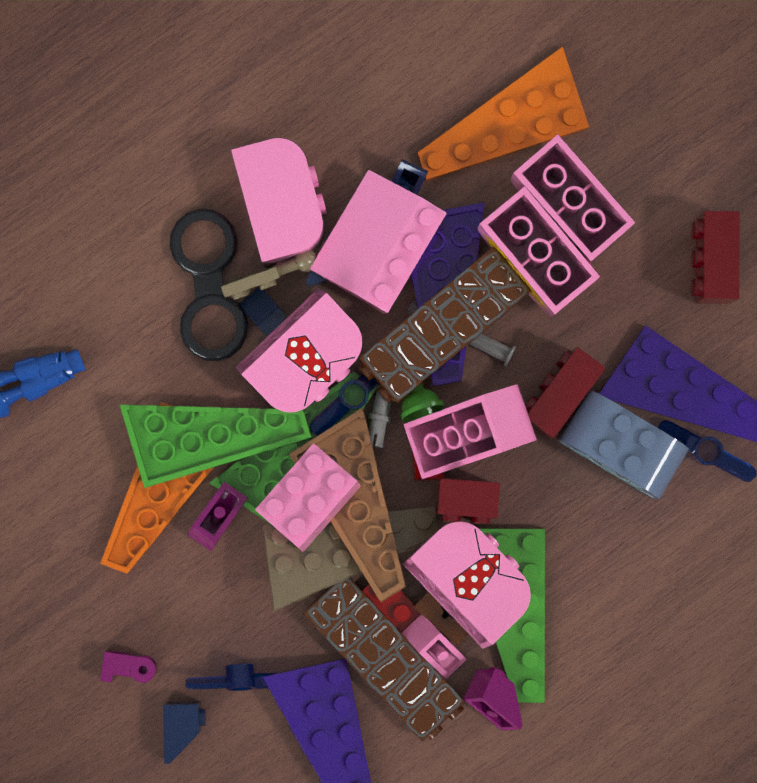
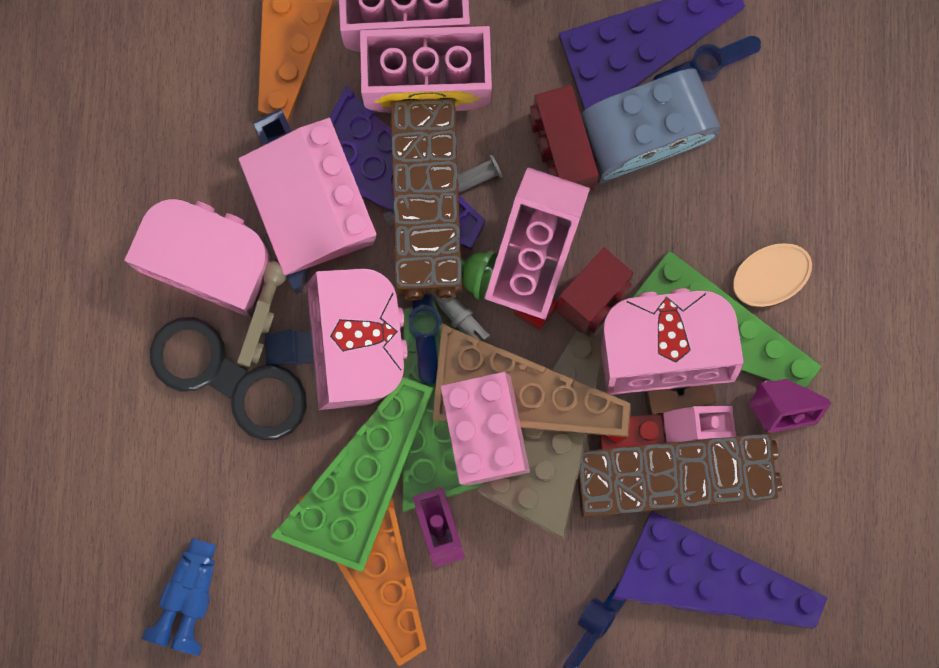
camera: 55 degrees left, 5 degrees down
(584, 617) = (772, 275): none -> light nougat piece

